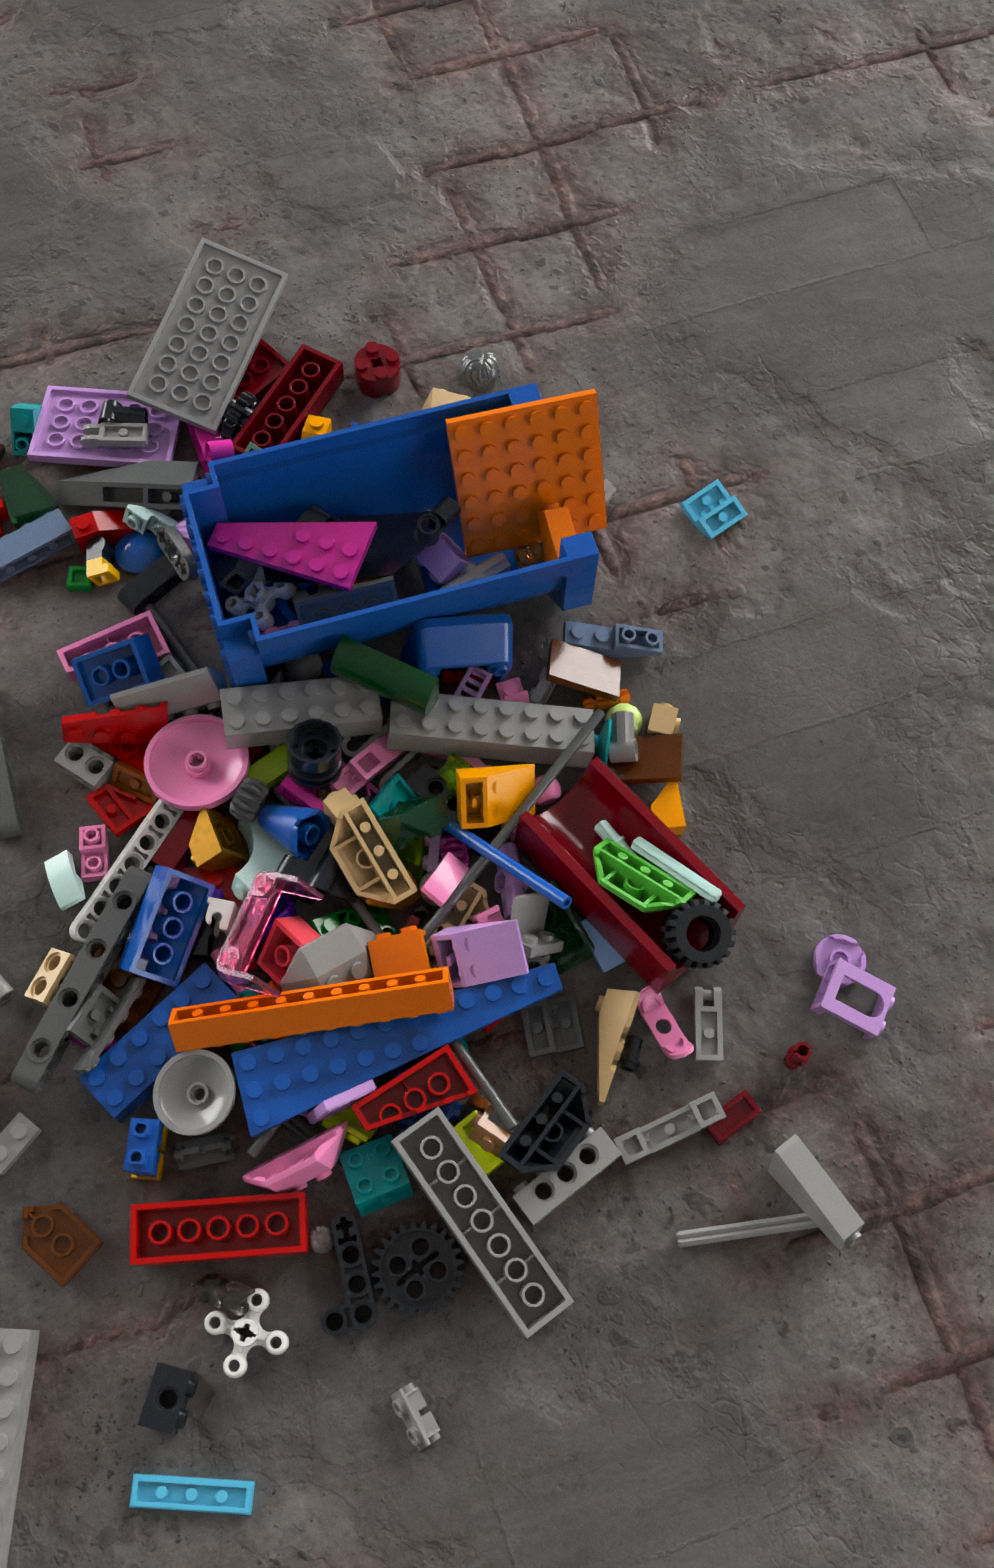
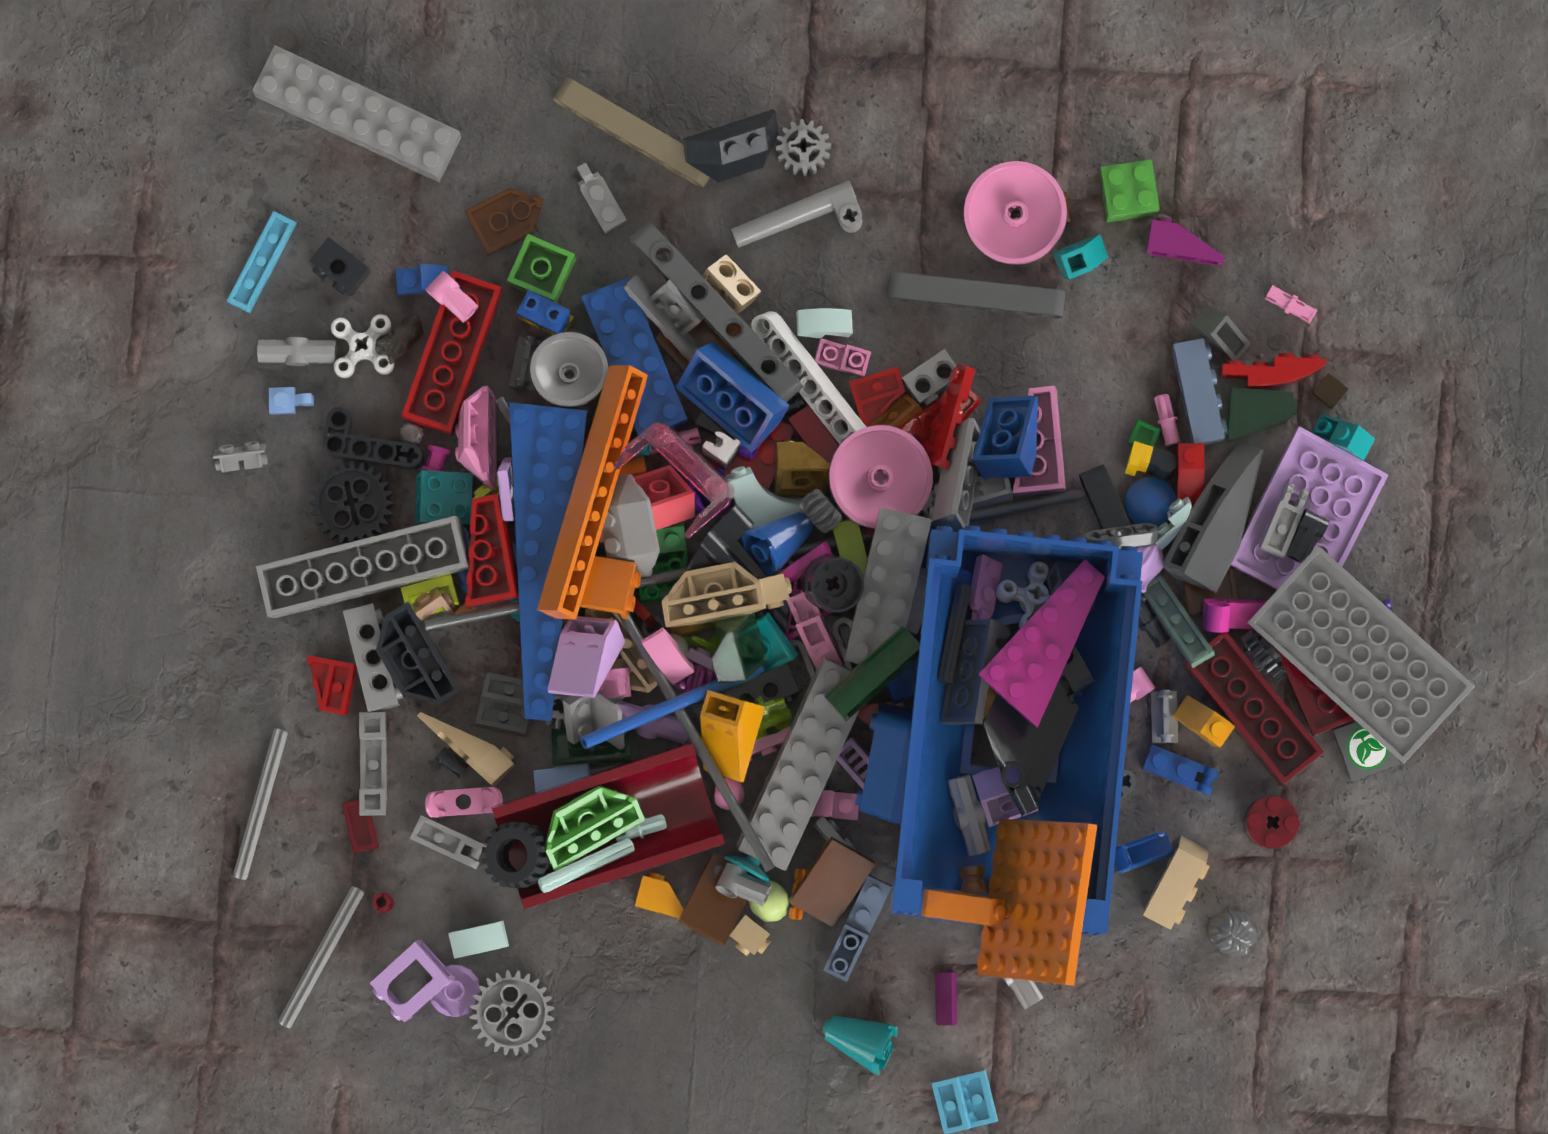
camera: 115 degrees right, 15 degrees up
(58, 564) = (1167, 420): none -> bright pink axle
(97, 1174) = (541, 268): none -> bright green brick
(153, 1300) = (415, 280): none -> blue slope
(155, 1257) = (447, 292): none -> bright pink piece
(278, 1404) = (297, 351): none -> light grey piece
(288, 330) = (1361, 751): none -> slope
(337, 1393) = (284, 400): none -> light blue plate
(338, 1200) = (436, 458): none -> dark pink bush
(609, 1206) = (333, 683): none -> red wing
(636, 551) = (946, 998): none -> magenta slope
(705, 596) = (862, 1040): none -> teal cone
(784, 955) = (478, 939): none -> light aqua slope
(815, 1192) = (262, 859): light grey slope -> none
(837, 877) = (493, 998): none -> light grey gear
(874, 1099) = (321, 957): none -> light grey axle

